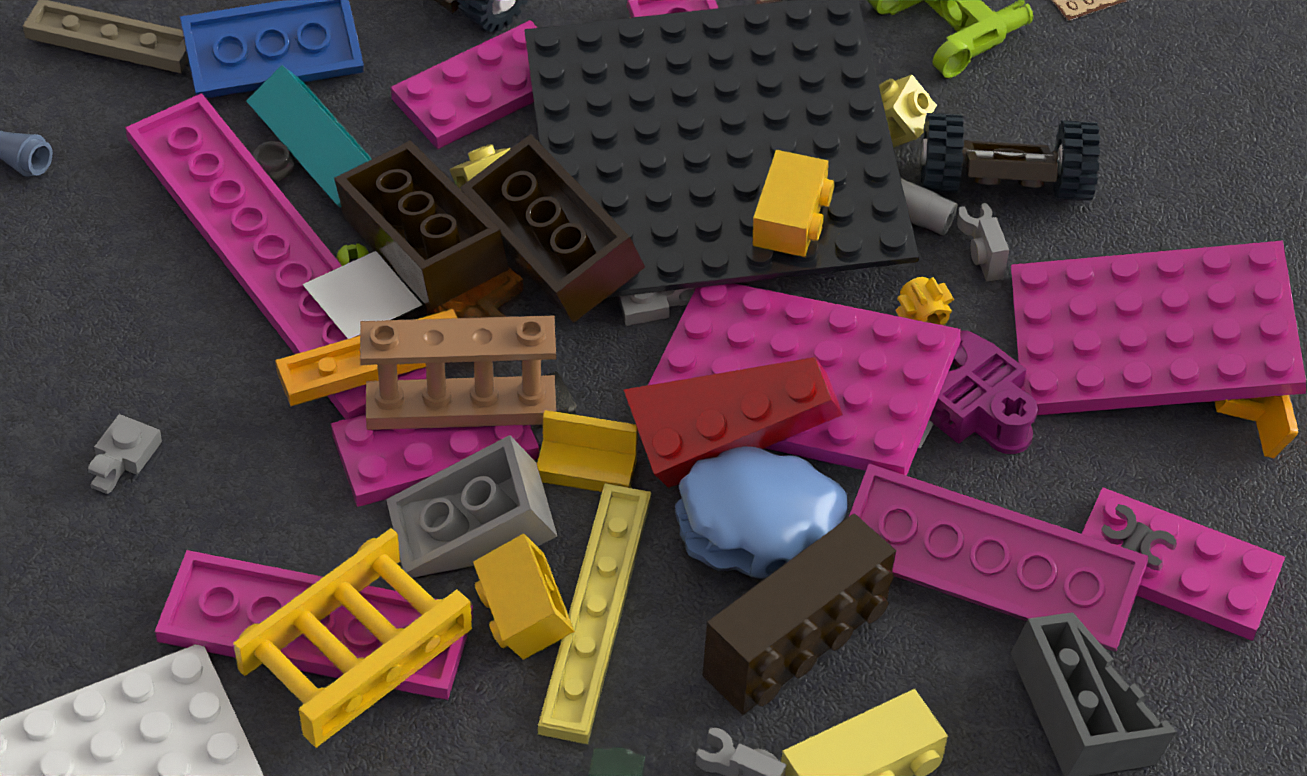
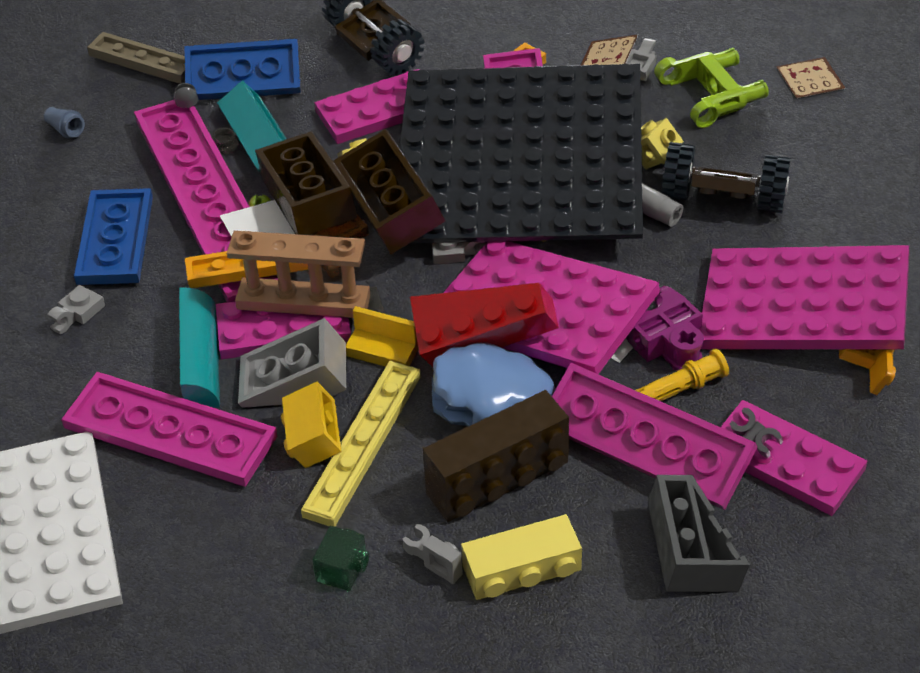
camera: 15 degrees right, 5 degrees down
(149, 332) = (114, 237): none -> blue plate
(199, 96) = (185, 95): none -> dark grey hinge
(322, 486) = (198, 347): none -> teal brick
(366, 678) = (197, 459): yellow fence -> none
(791, 203) = (557, 189): yellow brick -> none
(925, 301) = (643, 264): yellow gear -> none
(989, 245) = (697, 232): light grey plate -> none
(1026, 459) = (691, 375): none -> yellow pin

